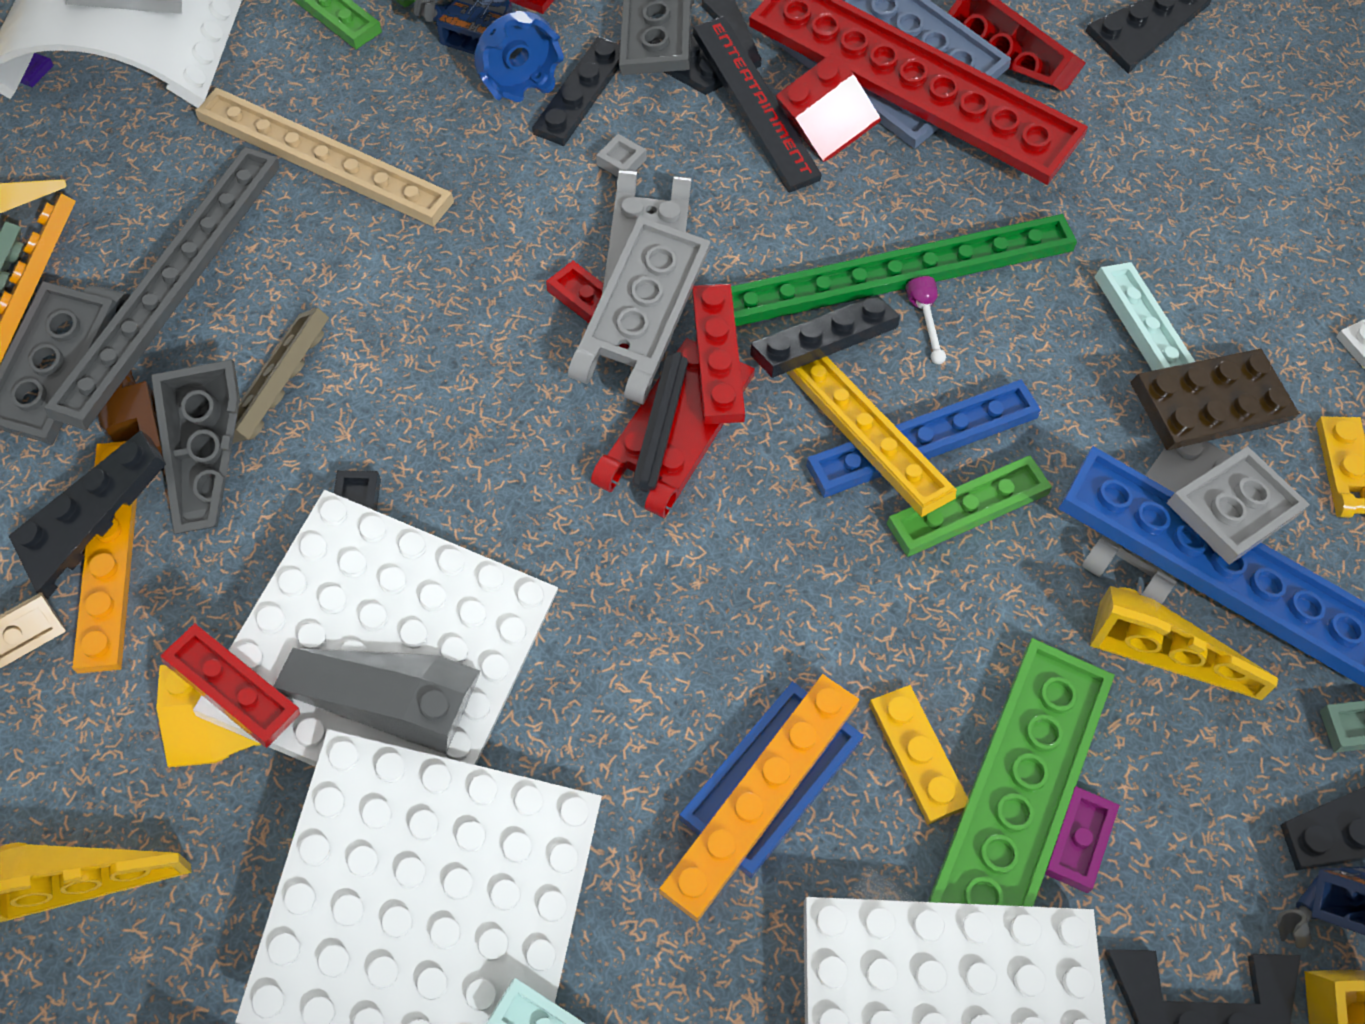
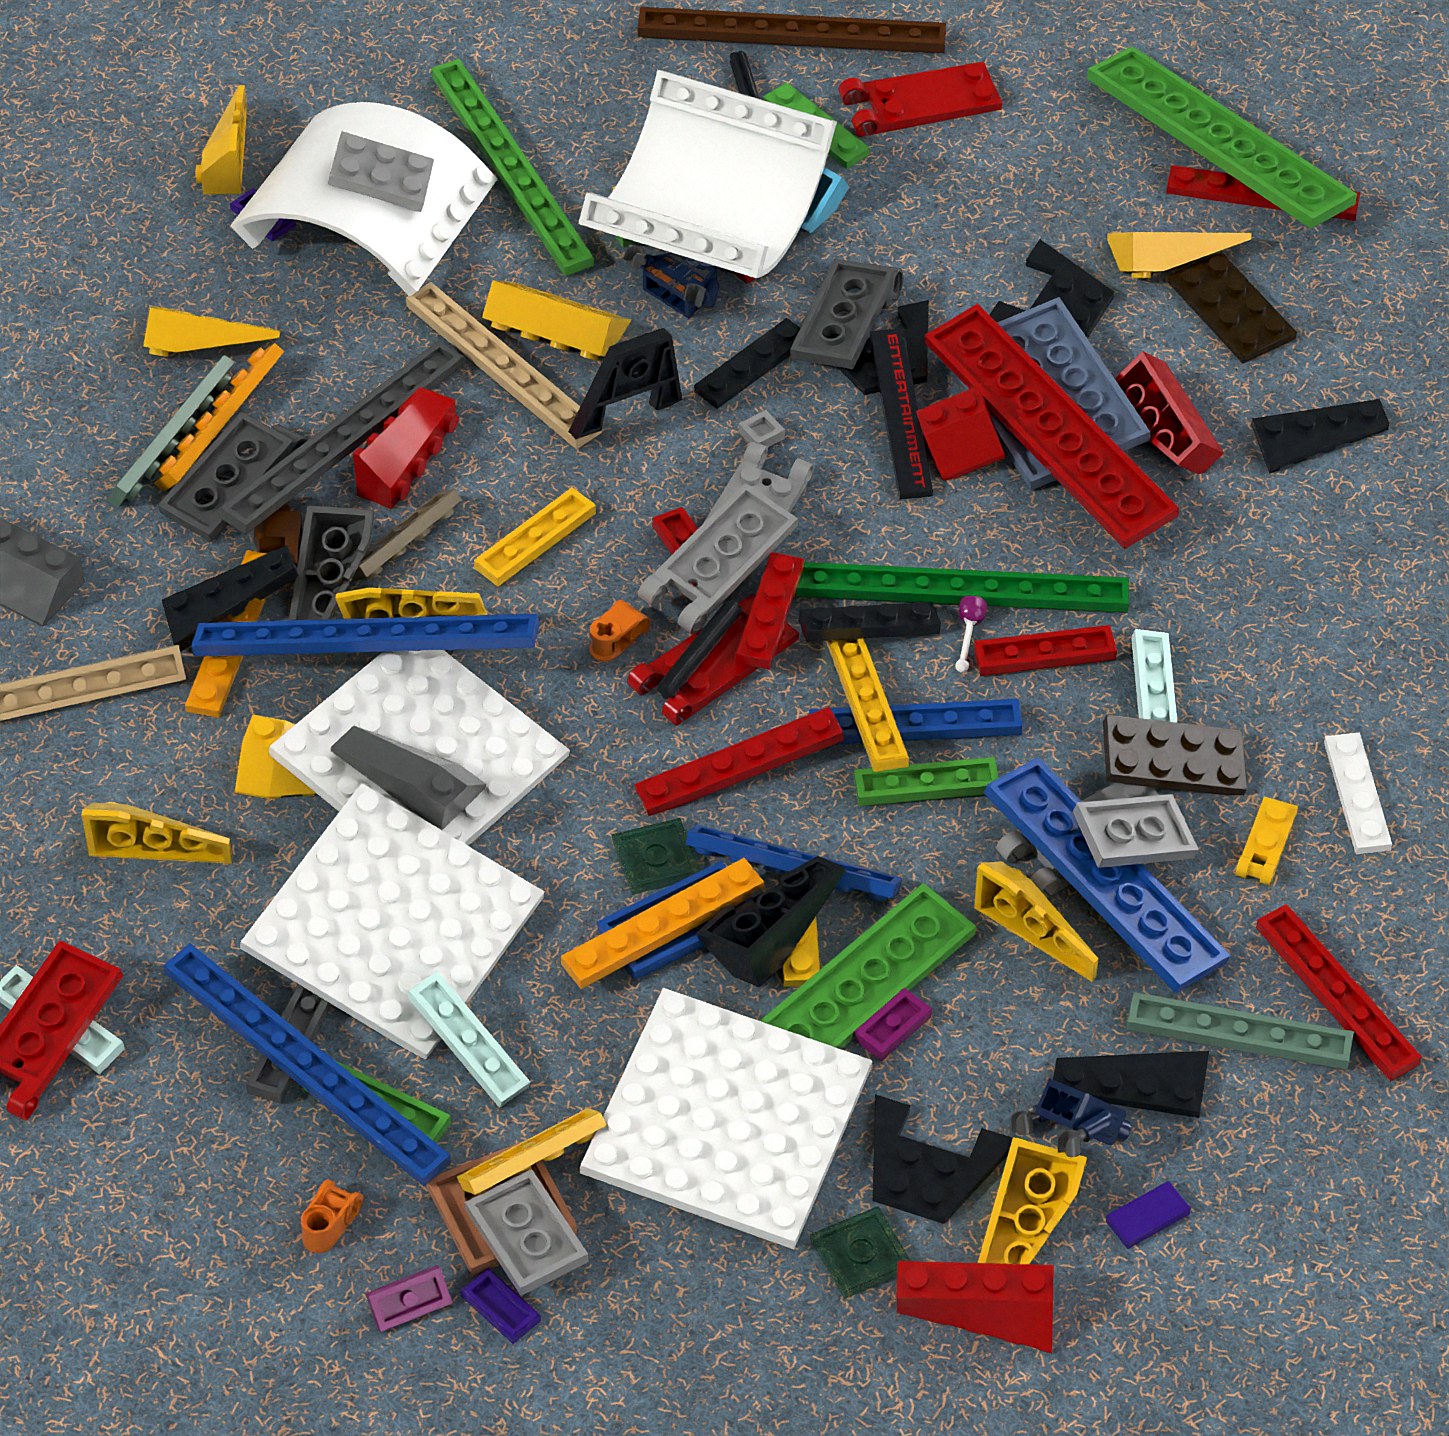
camera: 20 degrees right, 10 degrees down
(230, 685) = (302, 734): red plate -> none
(243, 275) = (403, 447): none -> red wedge
(269, 521) = (366, 635): none -> blue plate
(296, 477) = (407, 603): none -> yellow wedge
(359, 94) = (553, 318): none -> yellow slope
(423, 338) = (534, 536): none -> yellow plate
(468, 123) = (629, 370): none -> black wing
(532, 66) = (713, 331): blue plate -> none
(556, 423) = (616, 631): none -> orange piece
(709, 695) = (655, 855): none -> clear green tile
(756, 546) = (739, 762): none -> red plate
(873, 654) = (781, 859): none -> blue plate
(884, 759) = (764, 931): none -> black wedge
(1016, 316) = (1045, 650): none -> red plate

